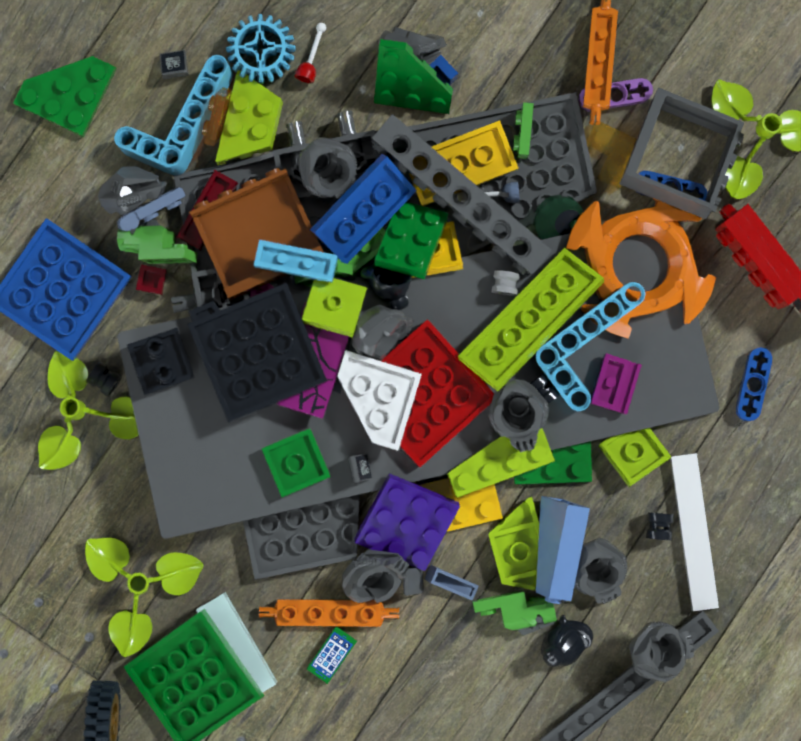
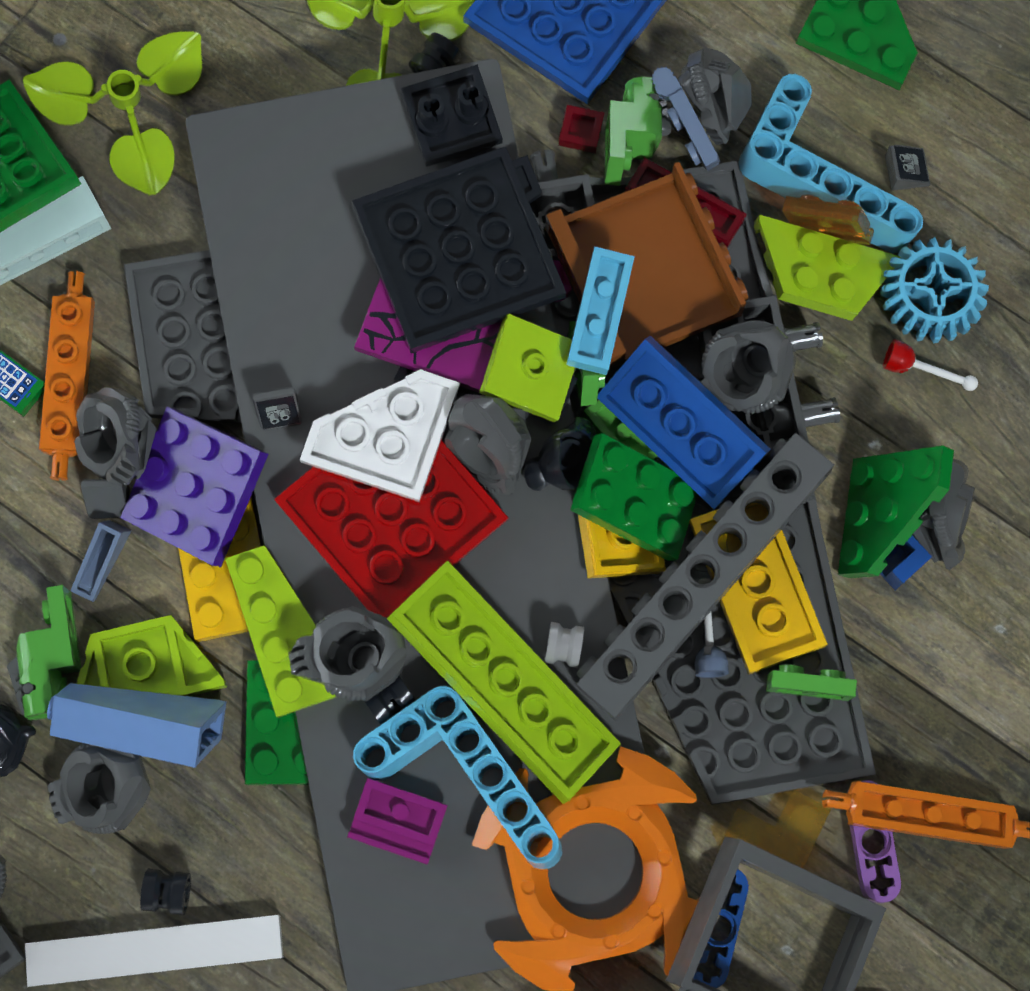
camera: 90 degrees right, 10 degrees down
(295, 462) = (290, 311): green plate -> none
(556, 216) = (673, 735): clear green tile -> none
(634, 454) = (284, 855): lime plate -> none

